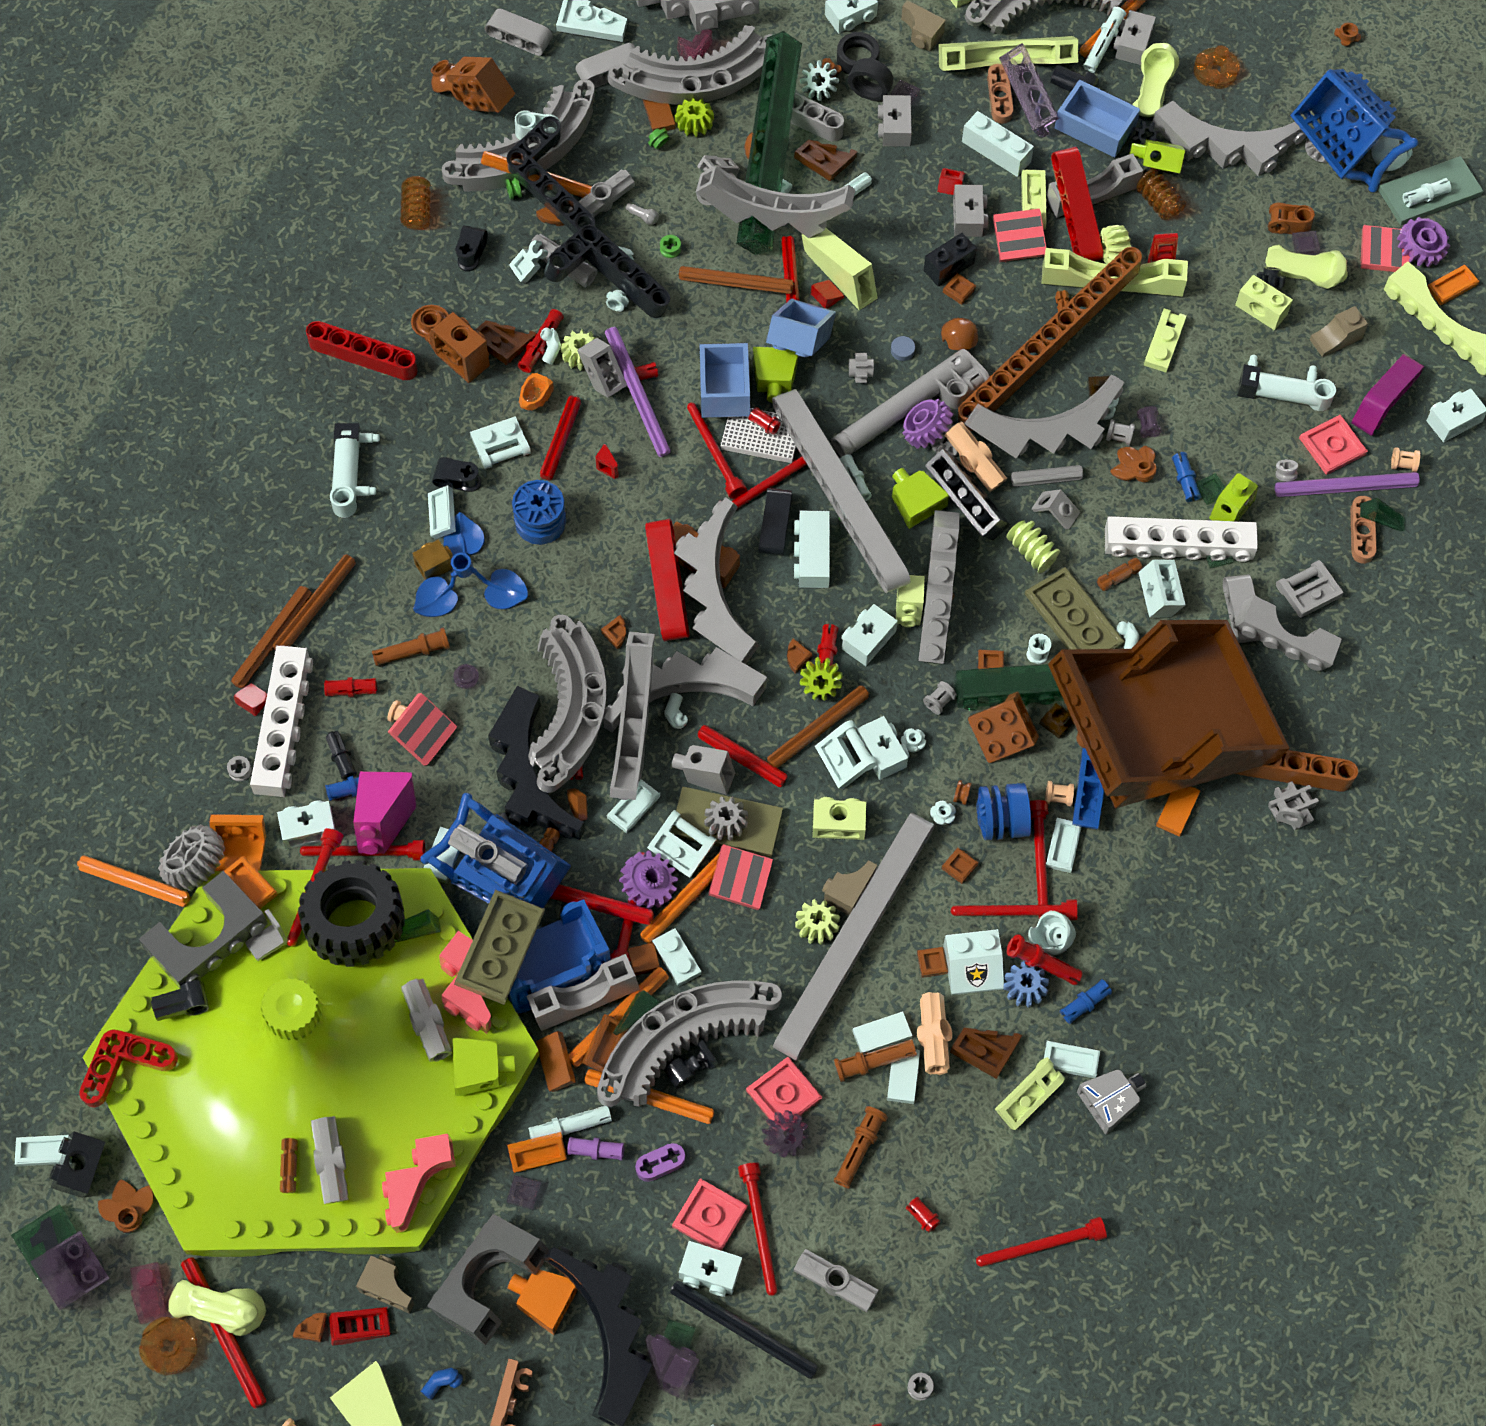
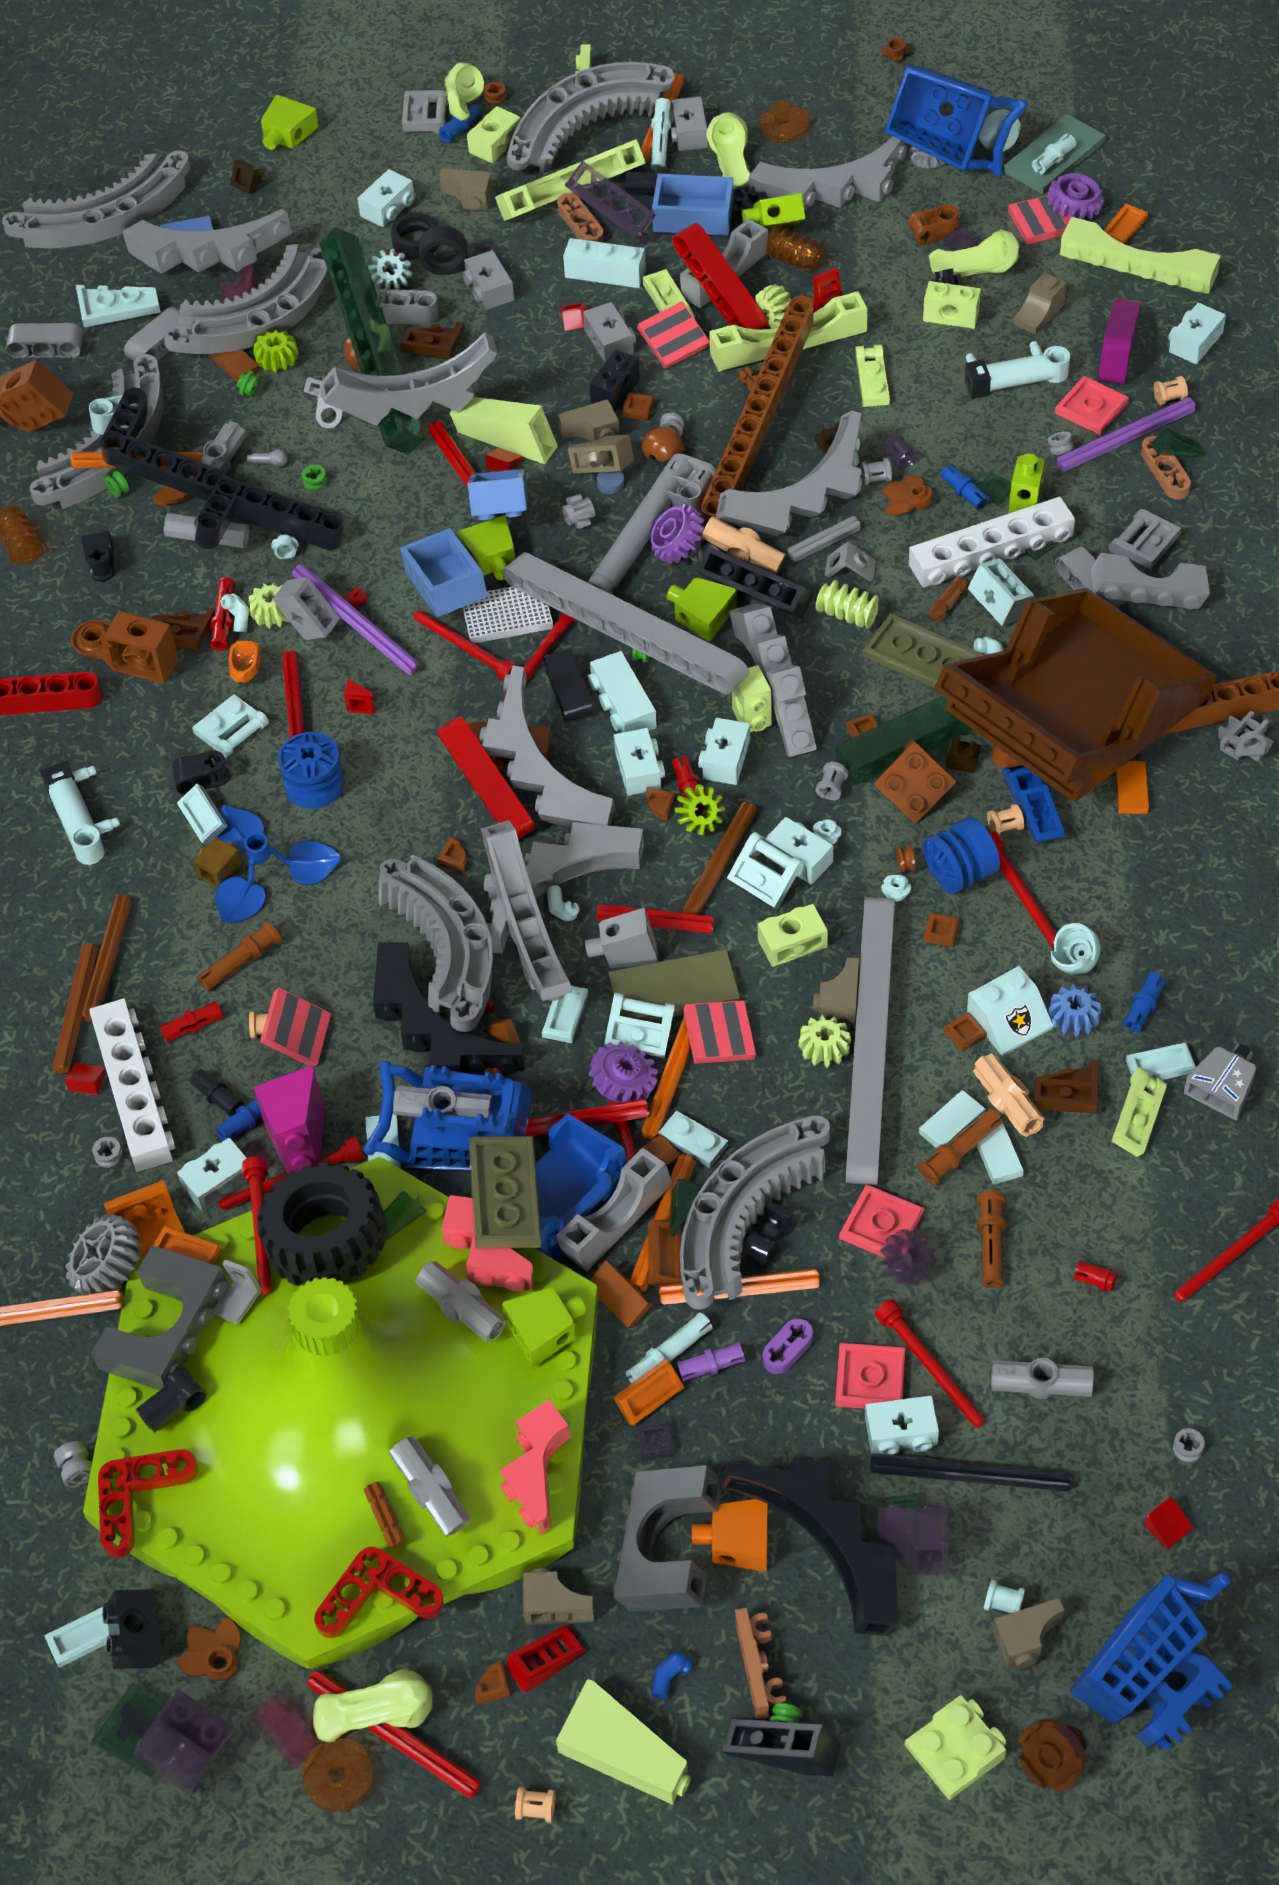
camera: 20 degrees left, 10 degrees down
(97, 1012) = (74, 1463): none -> light grey wheel
(262, 1213) = (380, 1580): none -> red beam
(466, 676) = (314, 960): clear purple plate -> none
(526, 262) = (168, 547): light aqua plate -> none
(734, 813) = (674, 979): light grey gear -> none
(736, 279) = (402, 480): dark orange axle -> none
(765, 421) = (504, 595): red pin -> none
(796, 600) = (638, 761): none -> light aqua brick
(906, 325) = (601, 455): none -> dark tan arch
(912, 289) = (589, 422): none -> dark tan arch
(978, 317) = (673, 419): none -> light grey bush
(1035, 956) = (1072, 974): red pin -> none
(1039, 642) = (907, 692): light aqua bush -> none
(1063, 845) = (1036, 867): light aqua tile -> none
(1066, 908) = (1077, 916): red piece -> none

